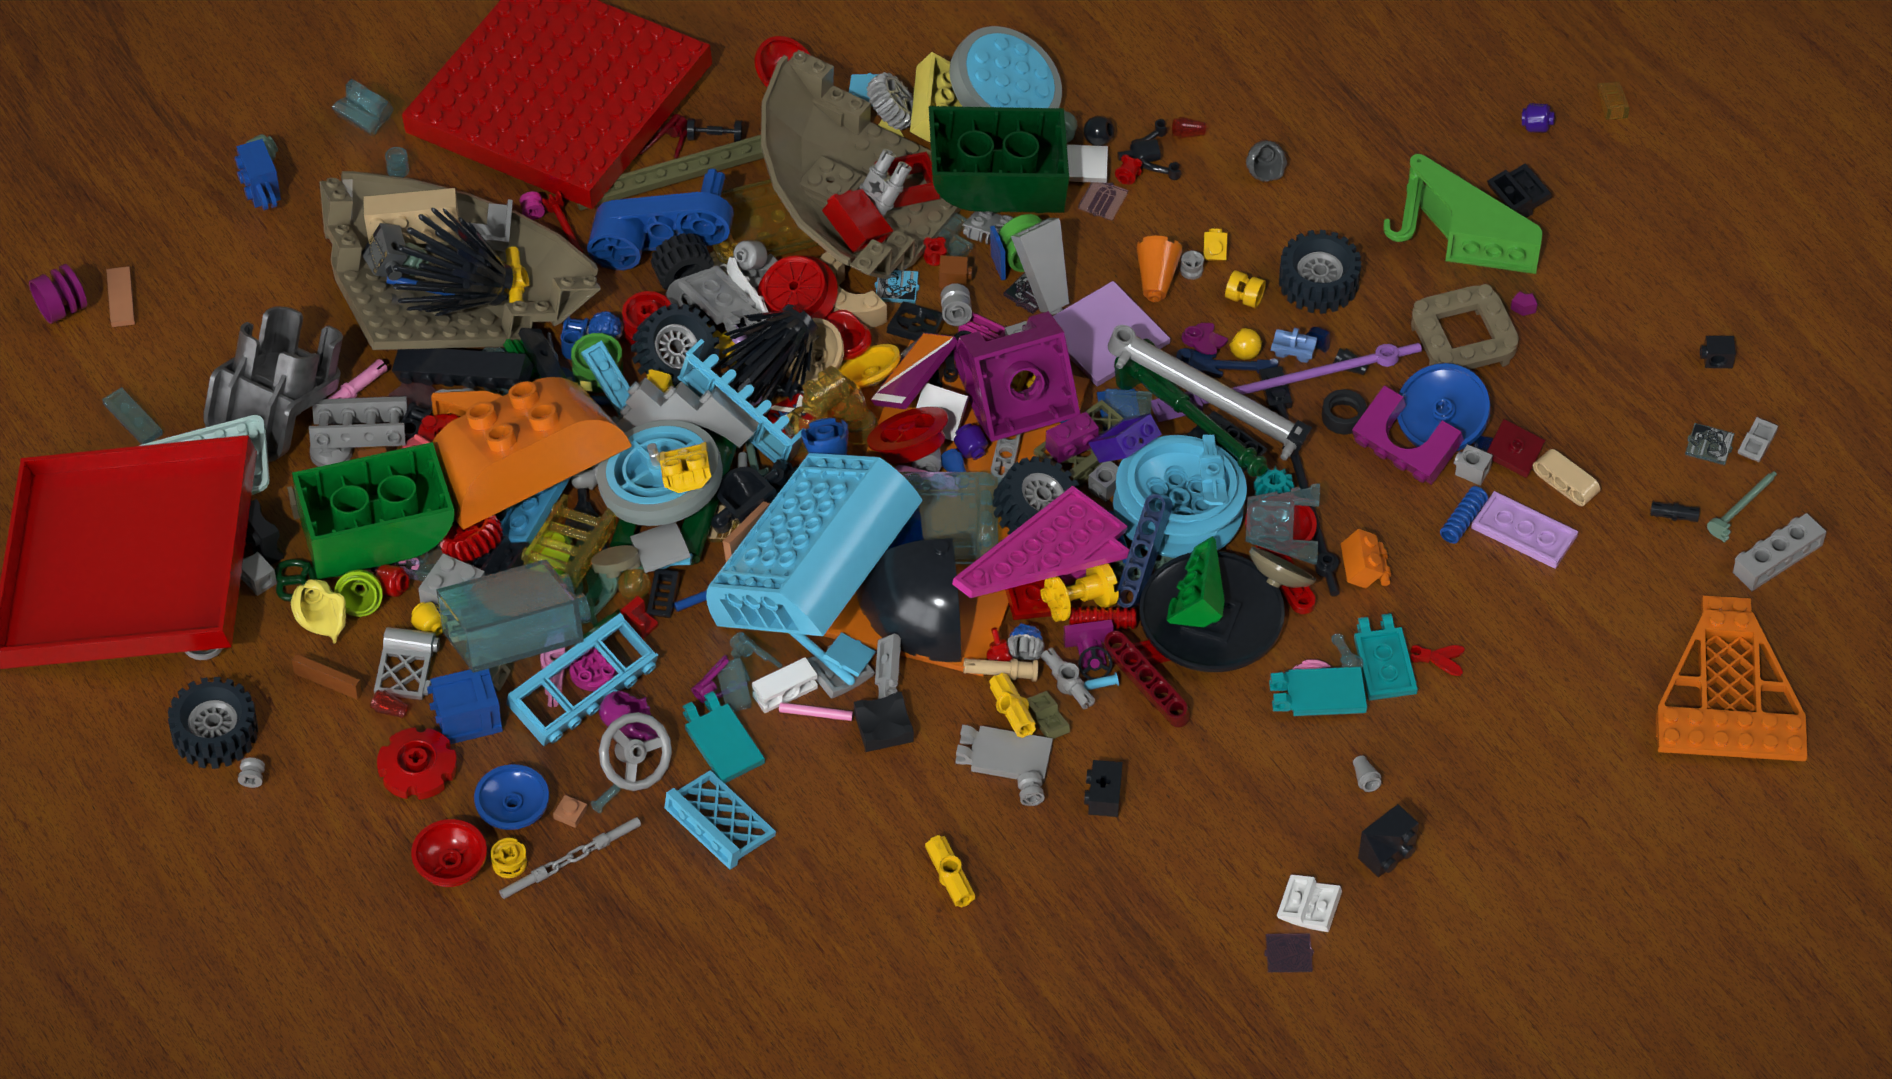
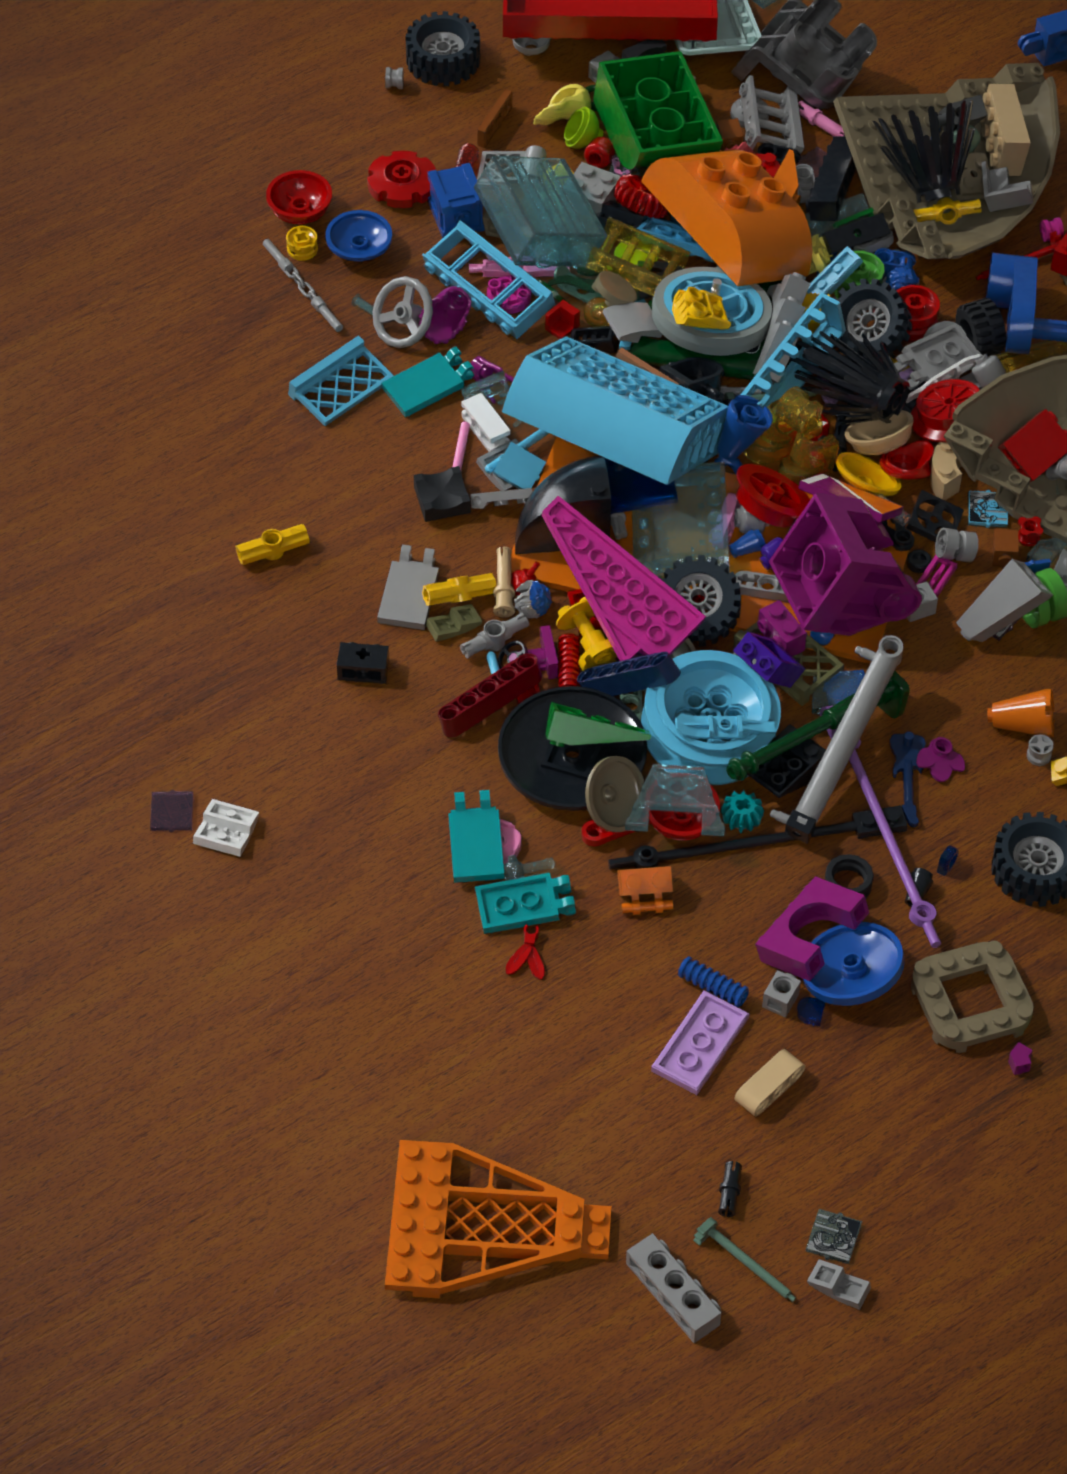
camera: 90 degrees right, 0 degrees up
(570, 811) = (352, 283): nougat plate -> none
(1030, 787) = (358, 606): light grey wheel -> none
(1091, 323) = (947, 676): lavender tile -> none
(1246, 344) = (930, 790): yellow piece -> none
(1252, 292) = (1007, 792): yellow wheel -> none
(1294, 344) = (933, 834): medium blue hips -> none
(1367, 776) = (376, 878): light grey cone -> none
(1388, 841) = (285, 885): black slope -> none
(1515, 448) = (808, 1034): dark red plate -> none
(1718, 352) = (964, 1250): black brick -> none

